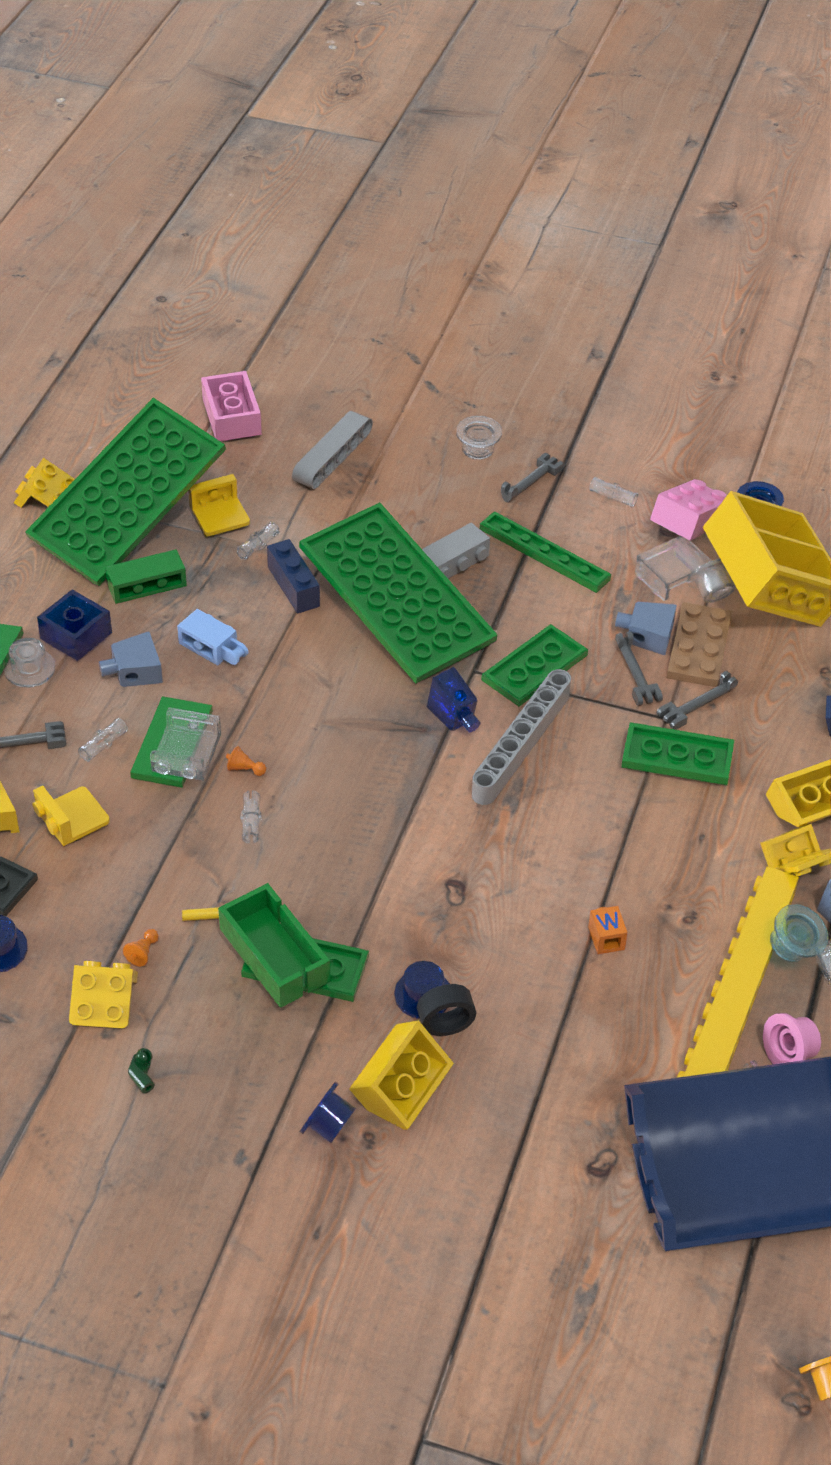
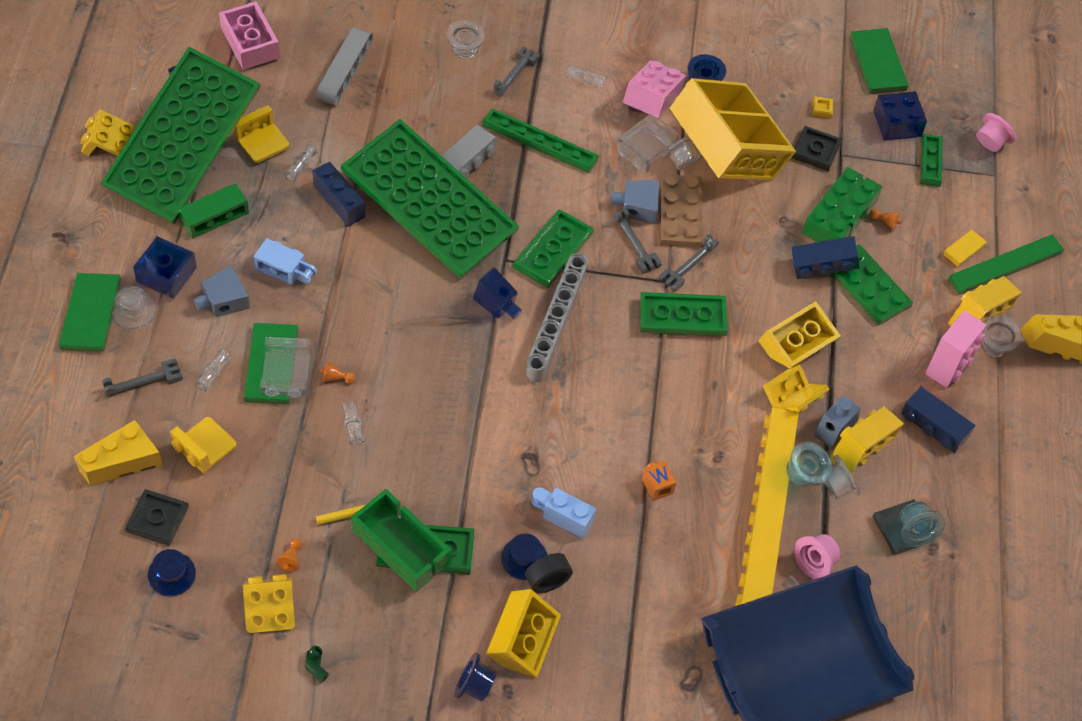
camera: 15 degrees left, 10 degrees up
(484, 946) = (565, 510): none -> light blue brick

